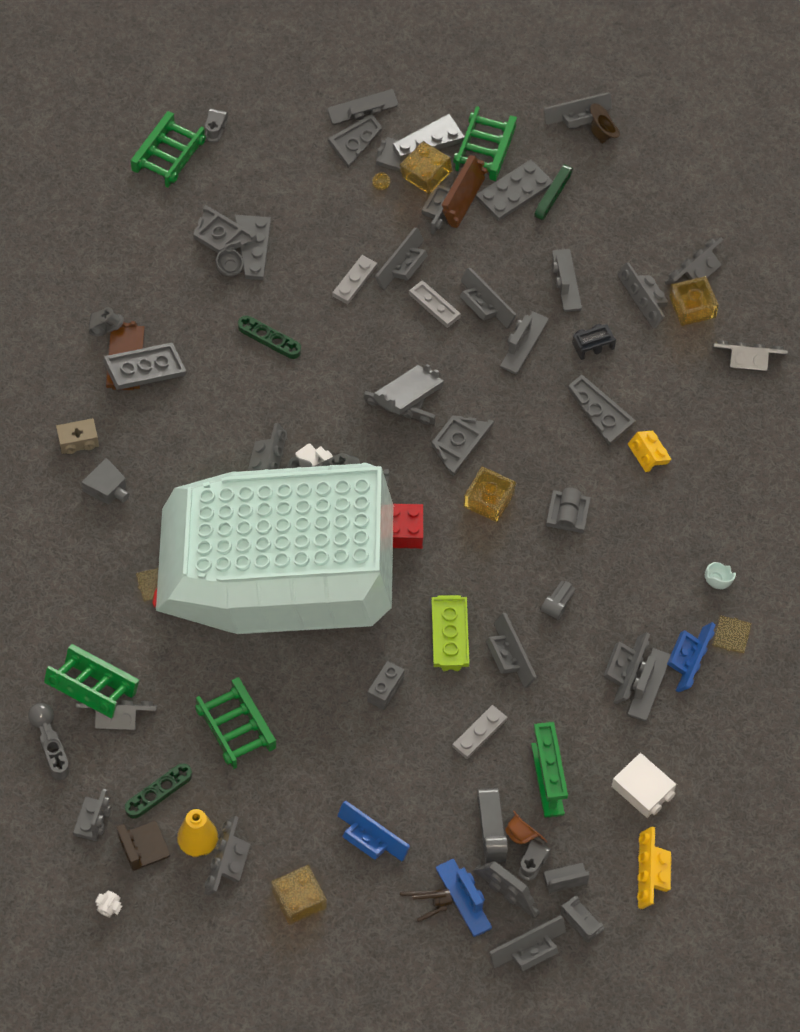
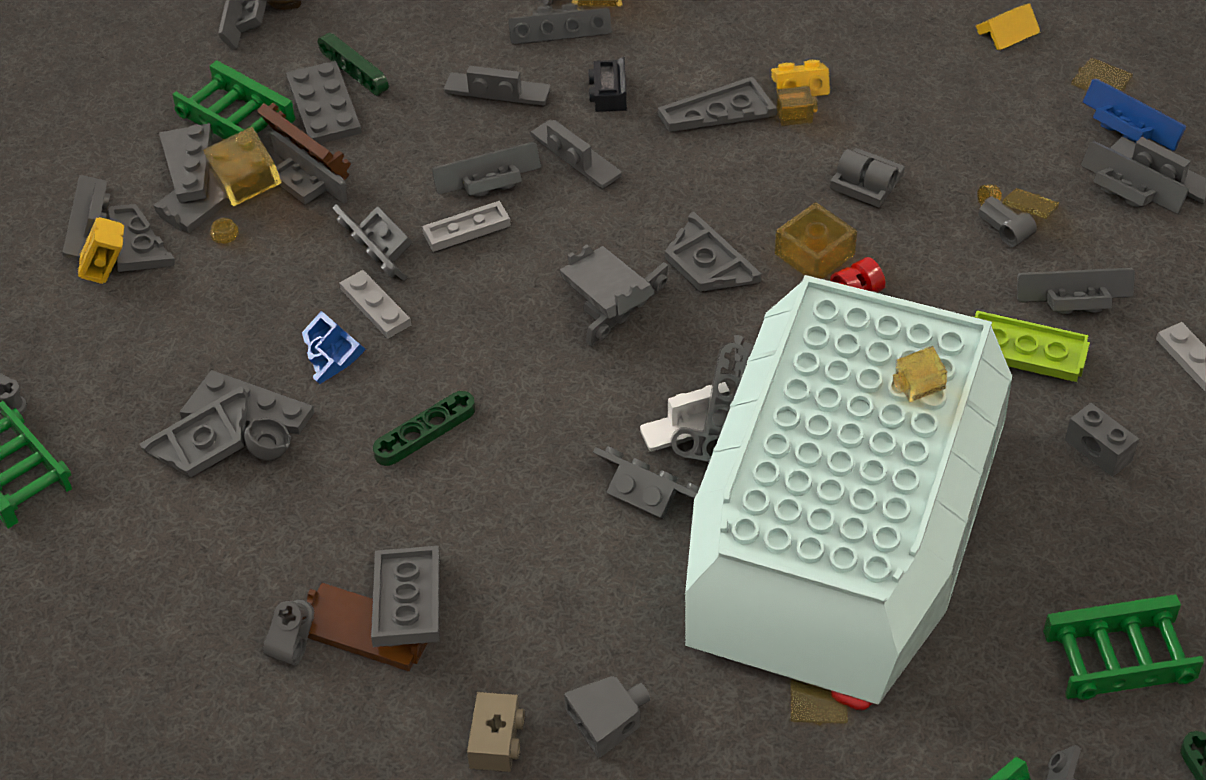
camera: 65 degrees left, 10 degrees down
(312, 269) = (329, 347): none -> blue slope
(324, 542) = (920, 374): none -> clear yellow brick
(330, 124) = (101, 250): none -> yellow brick
(464, 525) = (862, 274): none -> red wheel
(579, 610) = (1031, 203): none -> clear yellow piece
(581, 586) = (987, 191): none -> clear yellow hinge
(618, 453) = (796, 105): none -> clear yellow brick
(719, 576) = (1020, 62): light aqua hair -> none
(759, 564) = (1010, 26): none -> yellow panel

